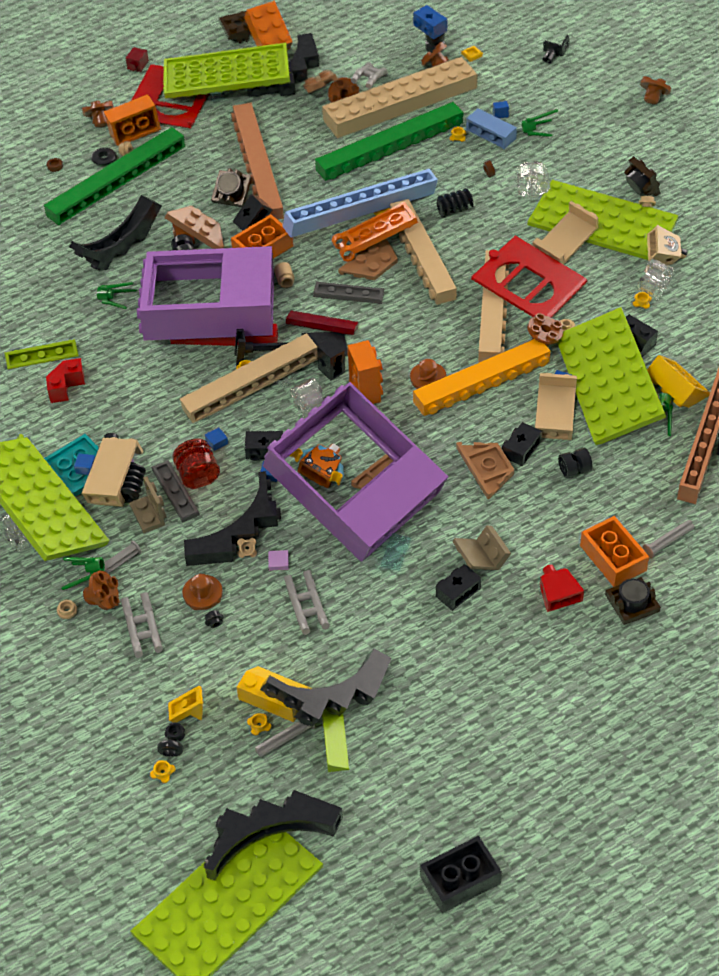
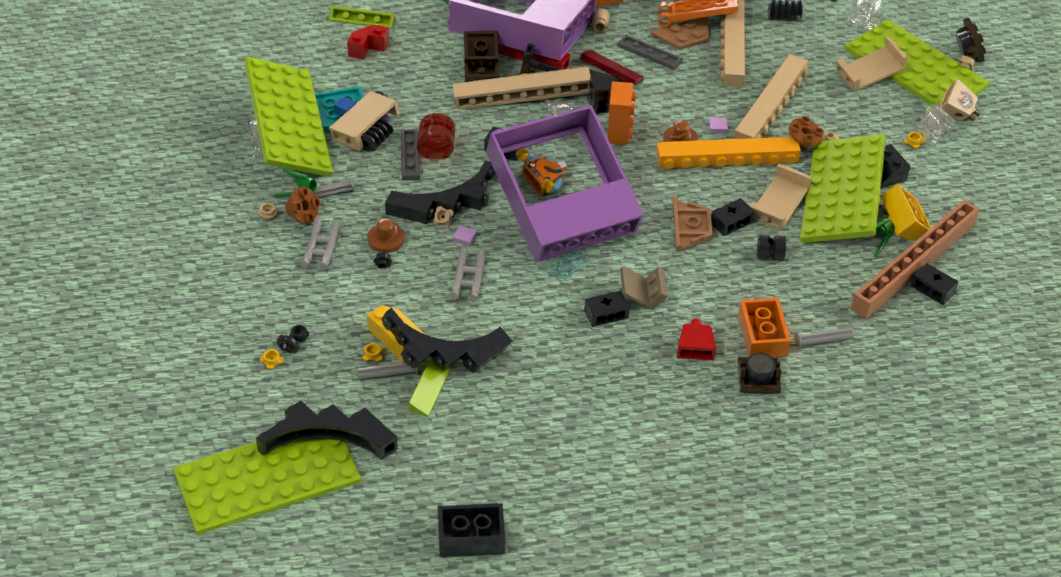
camera: 20 degrees right, 5 degrees down
(149, 509) = (376, 160): dark tan bracket -> none
(187, 704) = (323, 315): yellow slope -> none
(192, 358) = (480, 55): none -> dark brown slope
(216, 439) = (467, 126): blue piece -> none
(455, 349) = (718, 125): none -> lavender tile
(517, 251) = (847, 98): red door -> none

